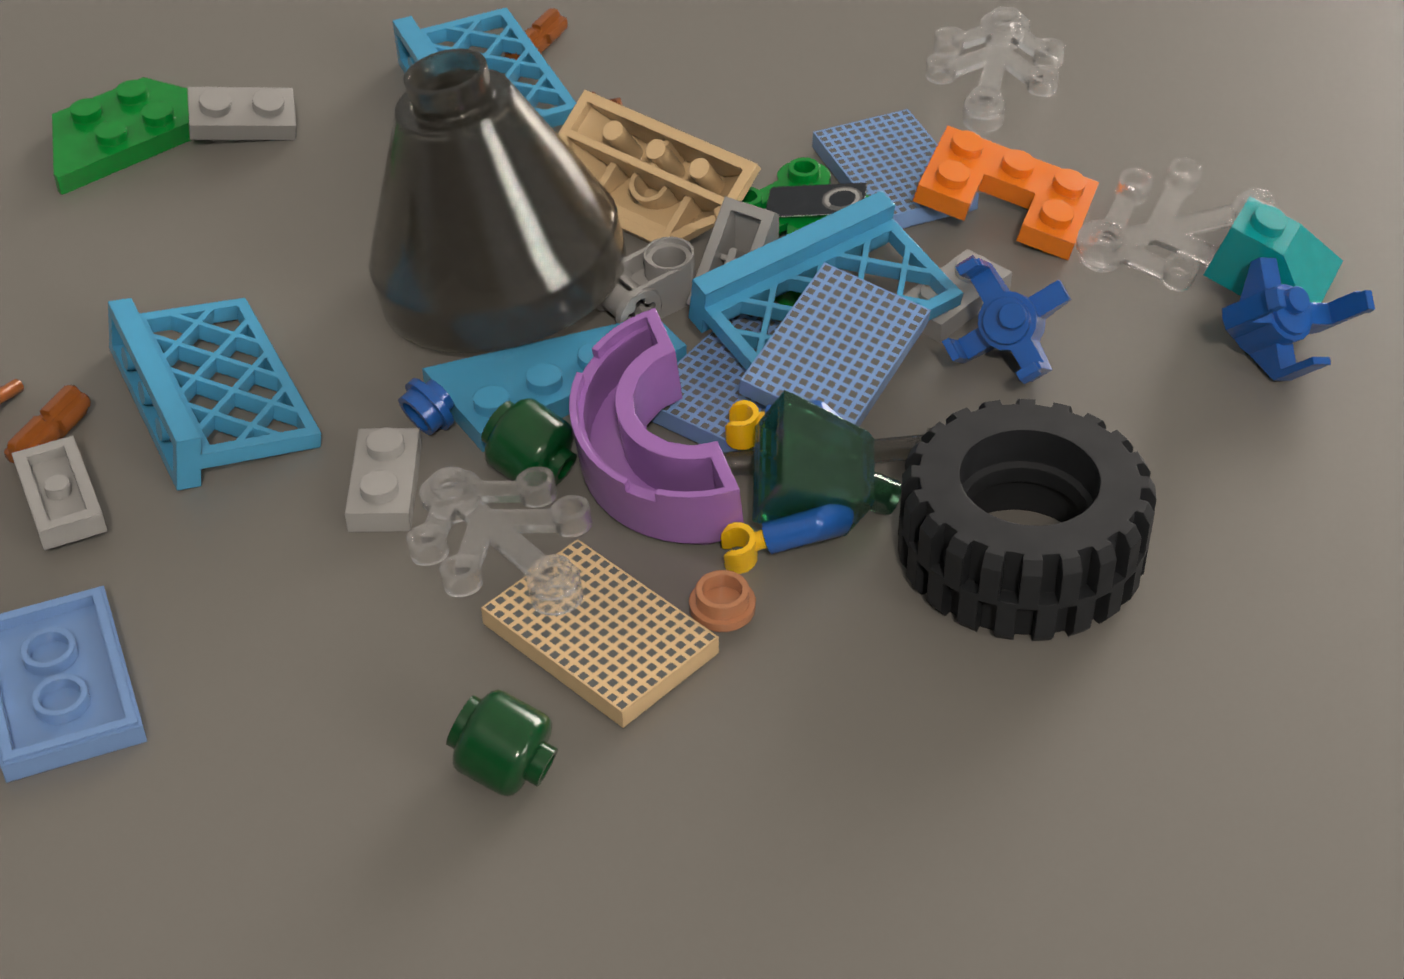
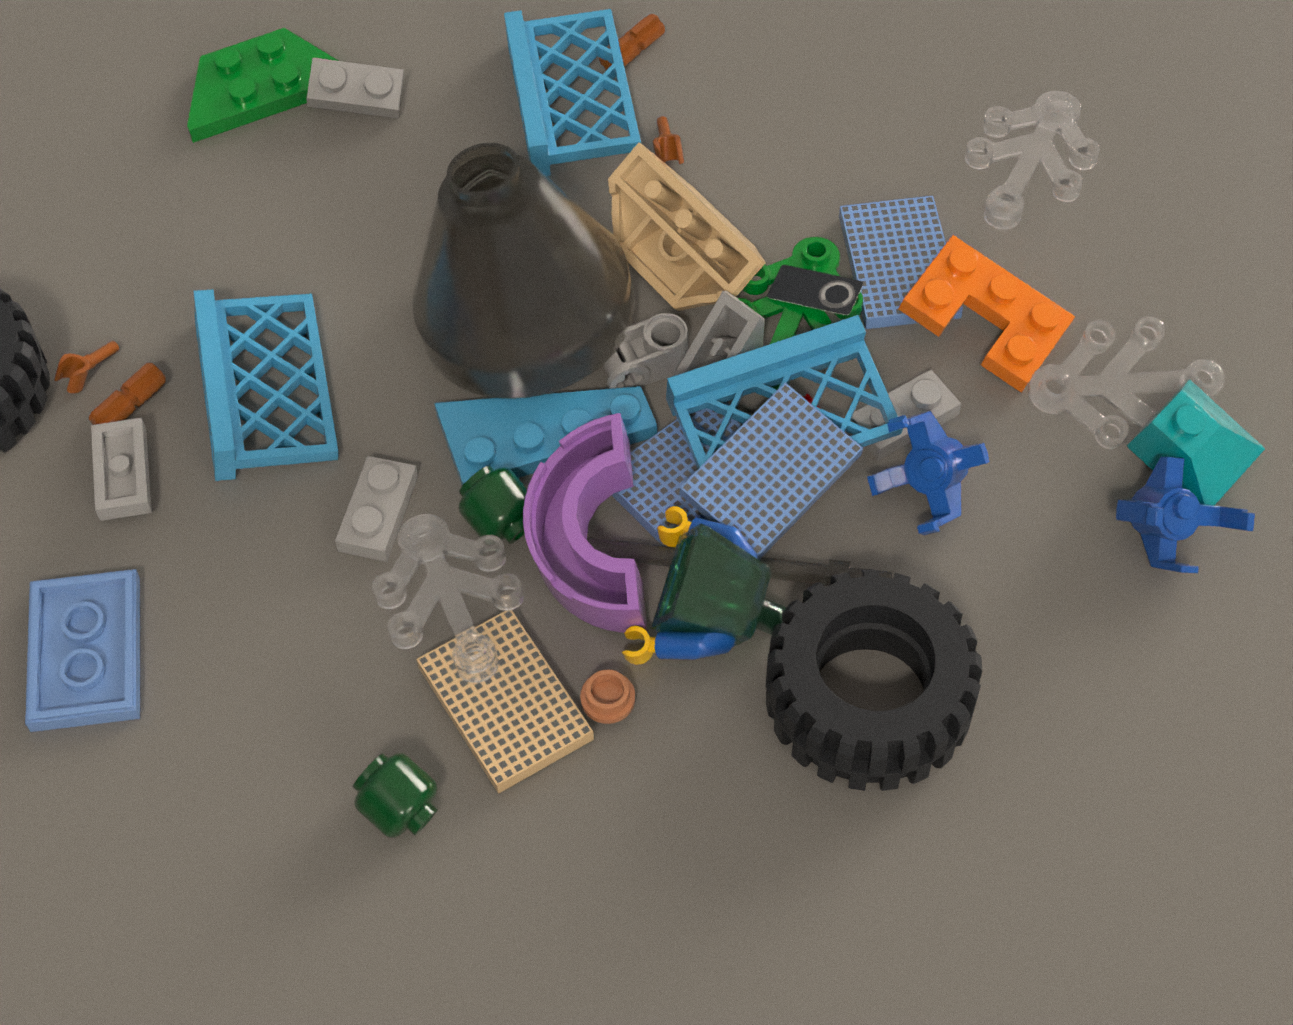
camera: 15 degrees right, 15 degrees up
(427, 405) = (427, 444): blue plate -> none

